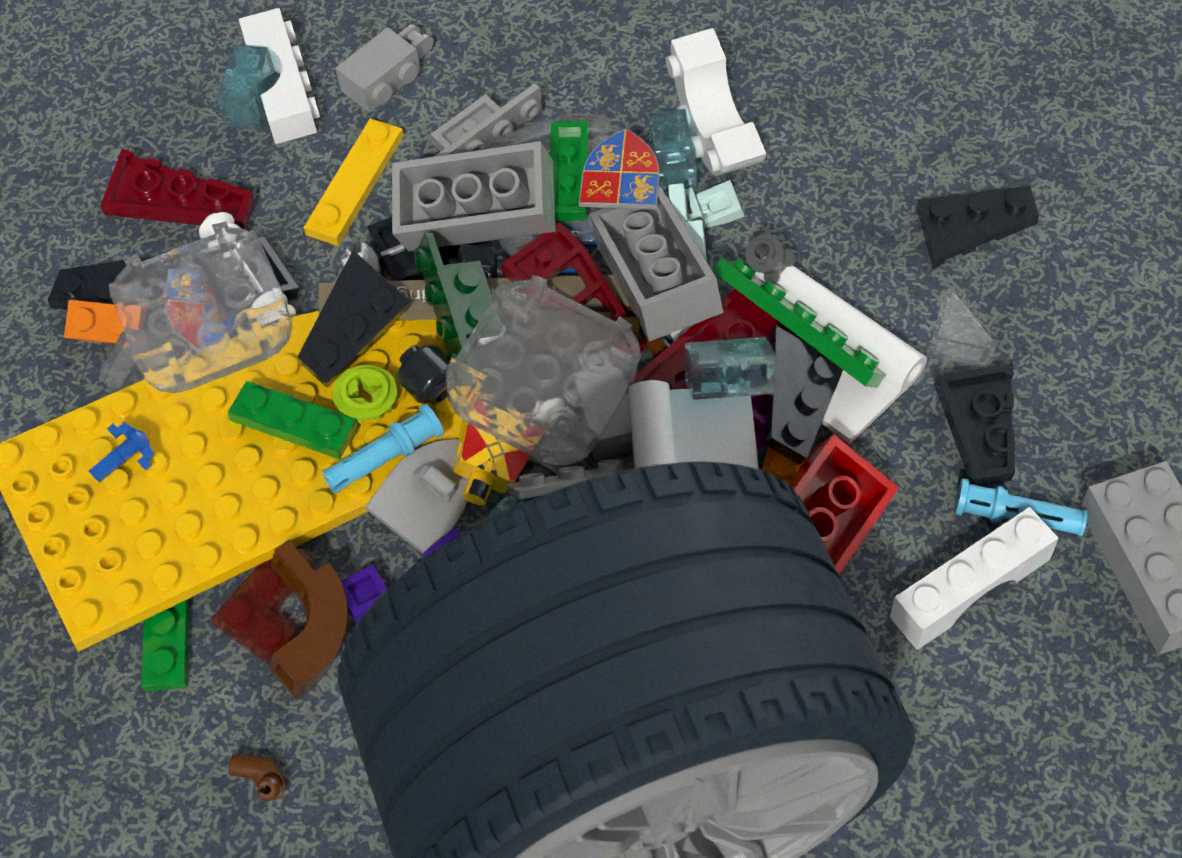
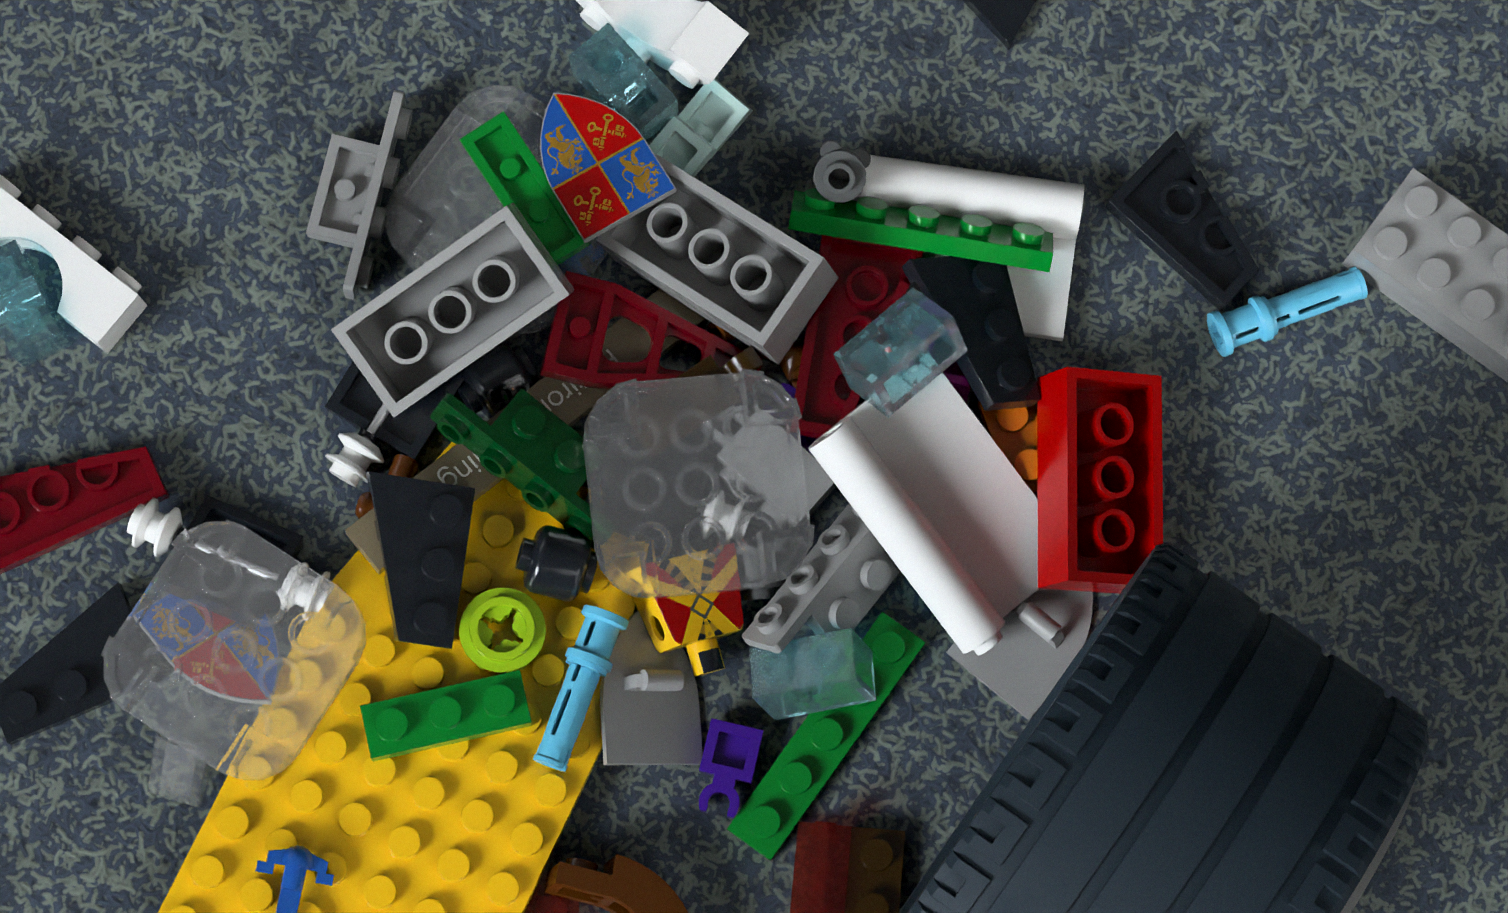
camera: 40 degrees left, 20 degrees up
(92, 322) = (94, 734): orange plate -> none
(353, 182) = (252, 348): yellow plate -> none
(362, 591) = (674, 858): dark purple plate -> none
(383, 66) = (170, 167): light grey brick -> none
(695, 228) = (718, 176): light aqua slope -> none
(945, 593) = (1292, 424): white arch -> none
(959, 335) = (1093, 128): clear slope -> none

